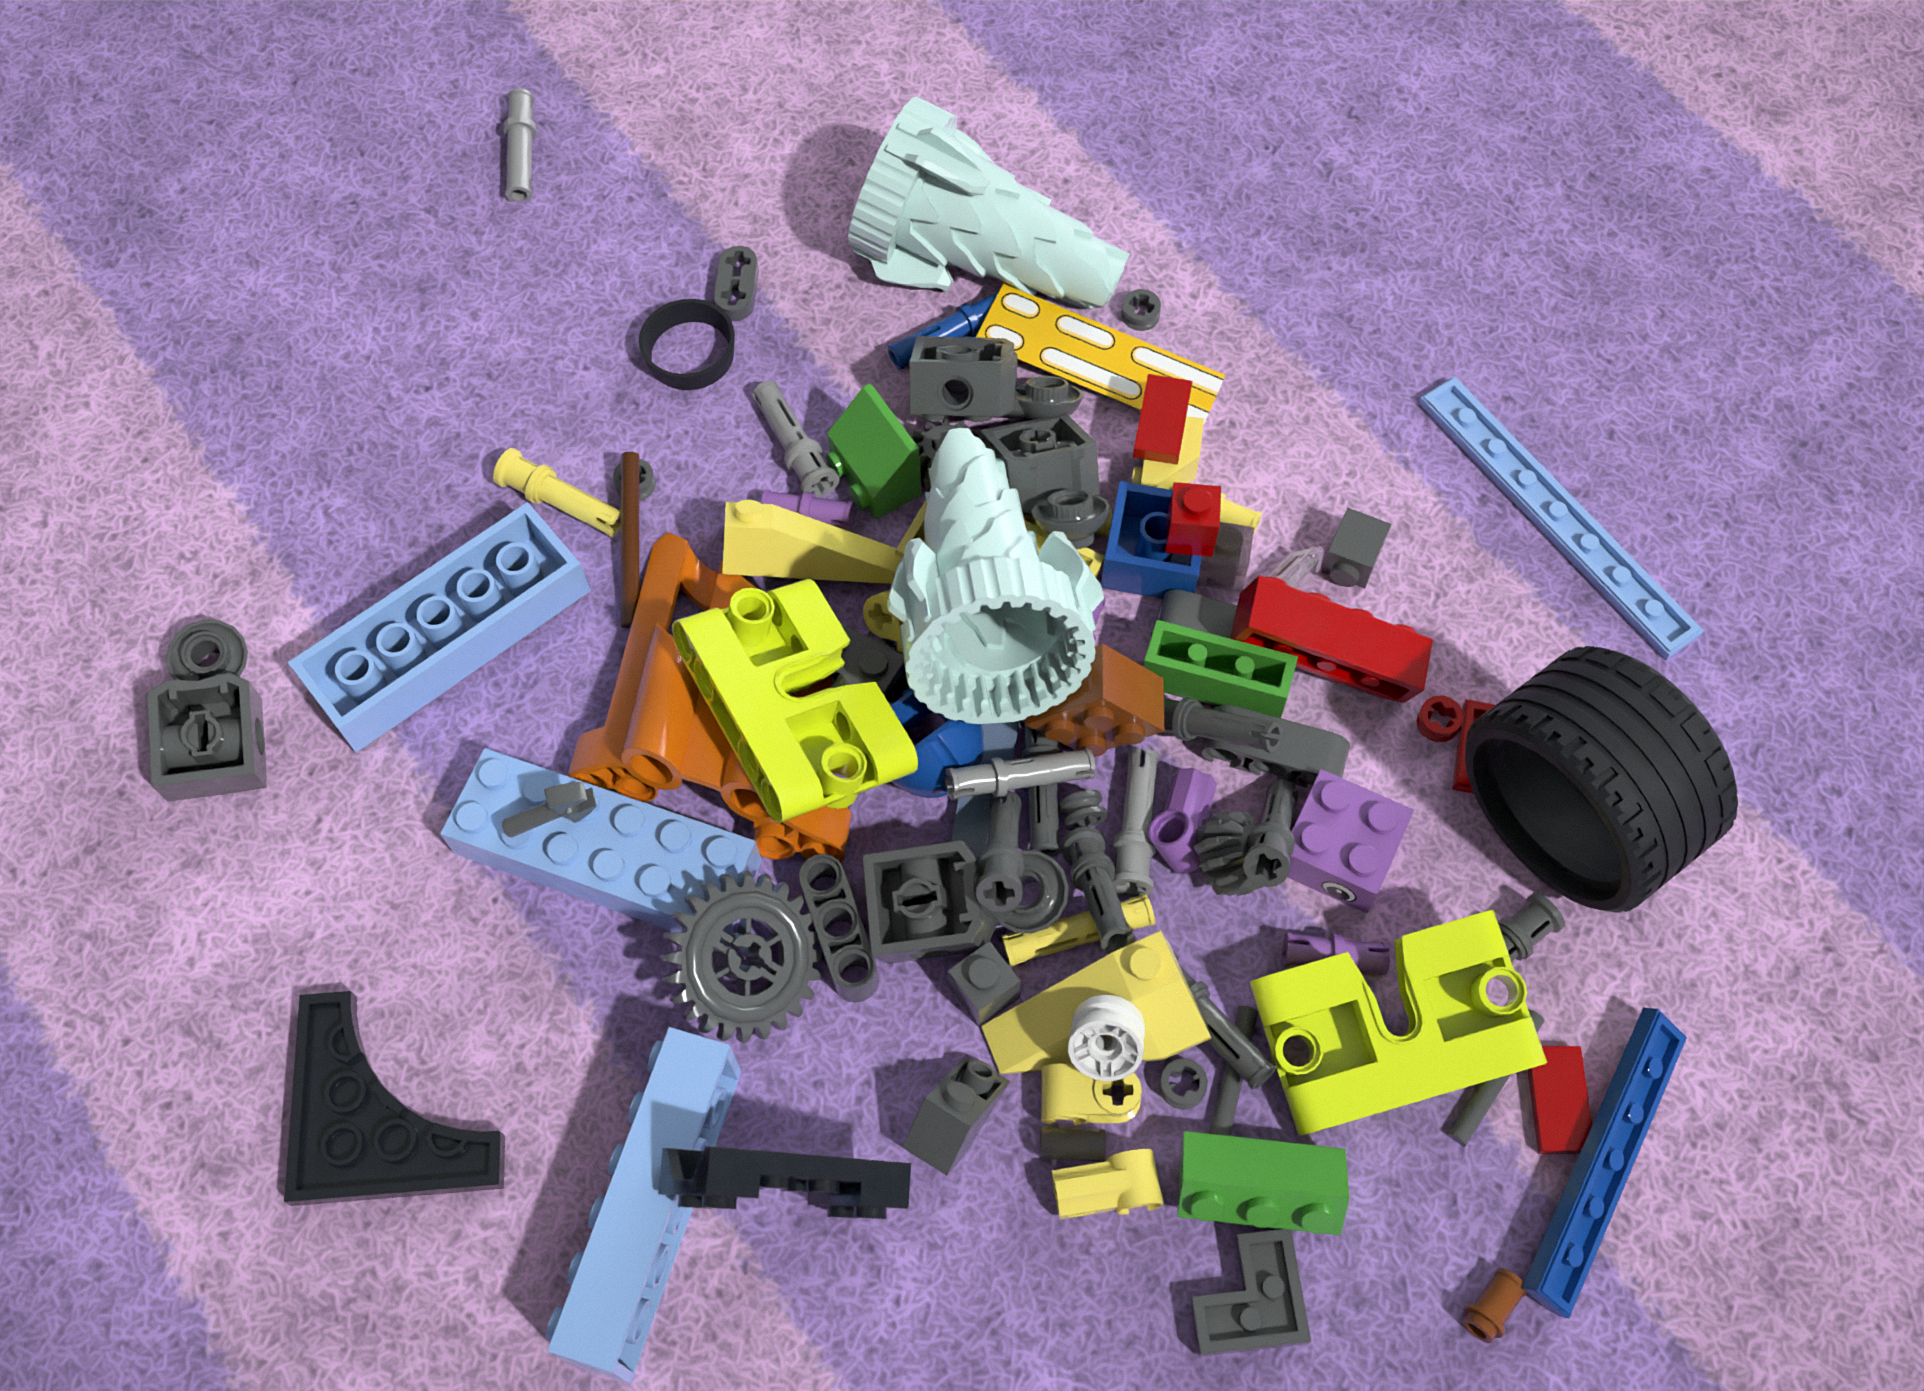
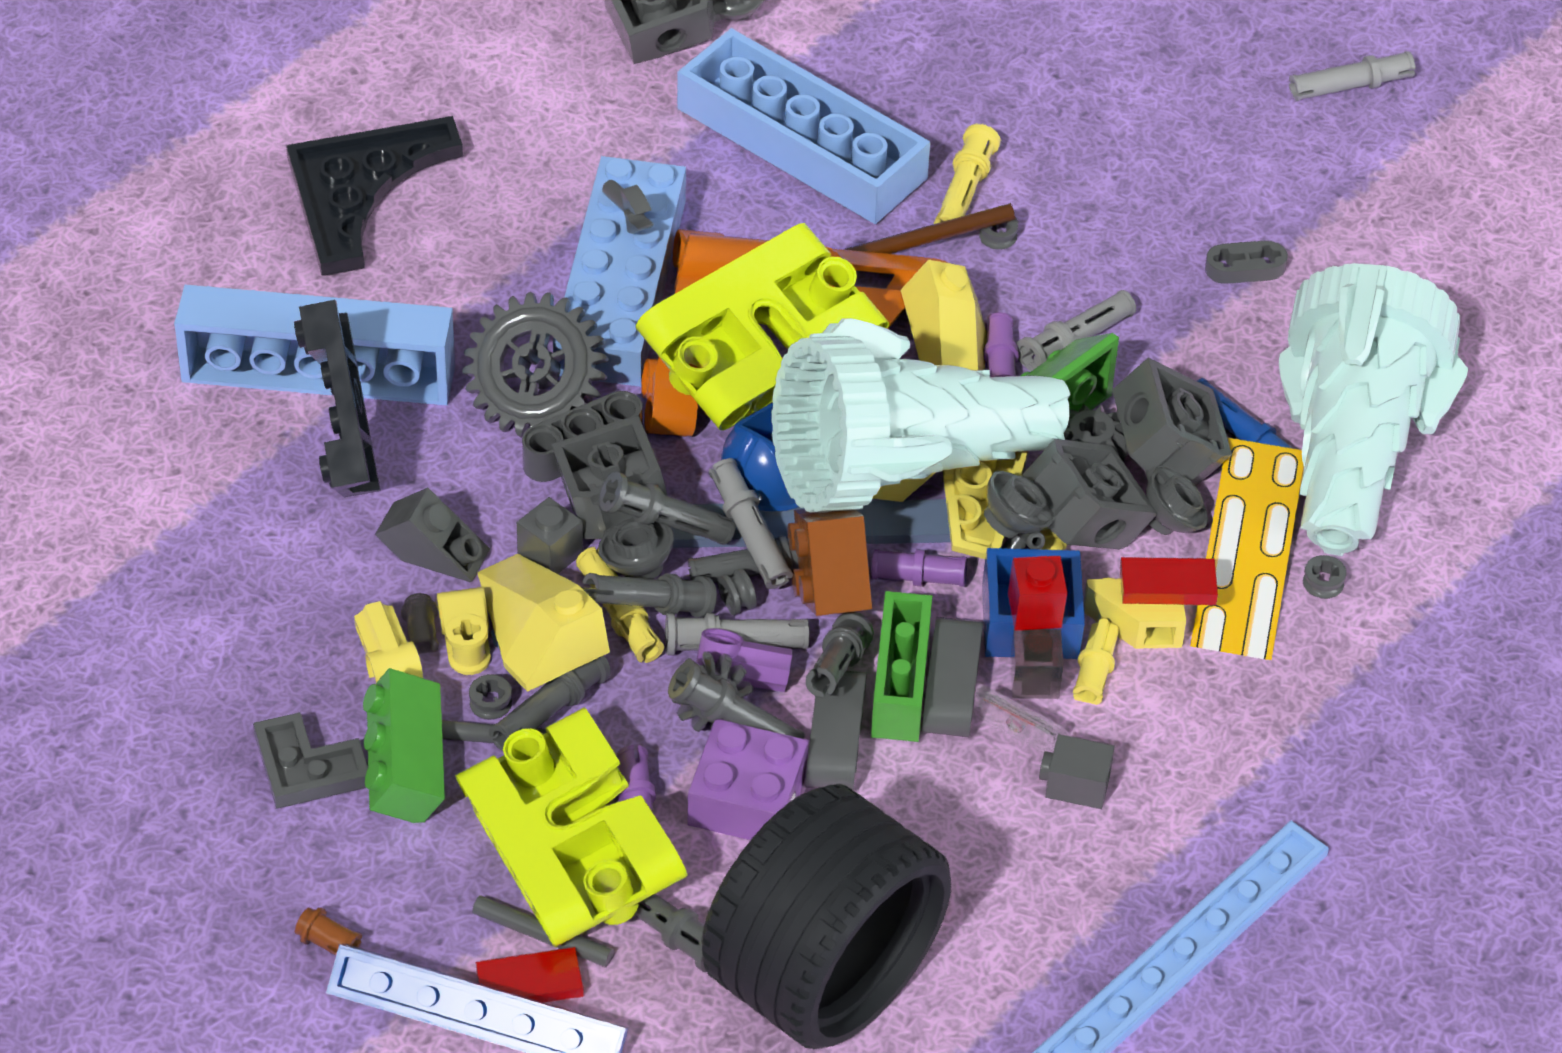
camera: 75 degrees right, 15 degrees down
(684, 312) = (1163, 209): black tyre -> none
(1107, 1057) = (503, 598): white wheel -> none
(1333, 639) = (954, 742): red brick -> none

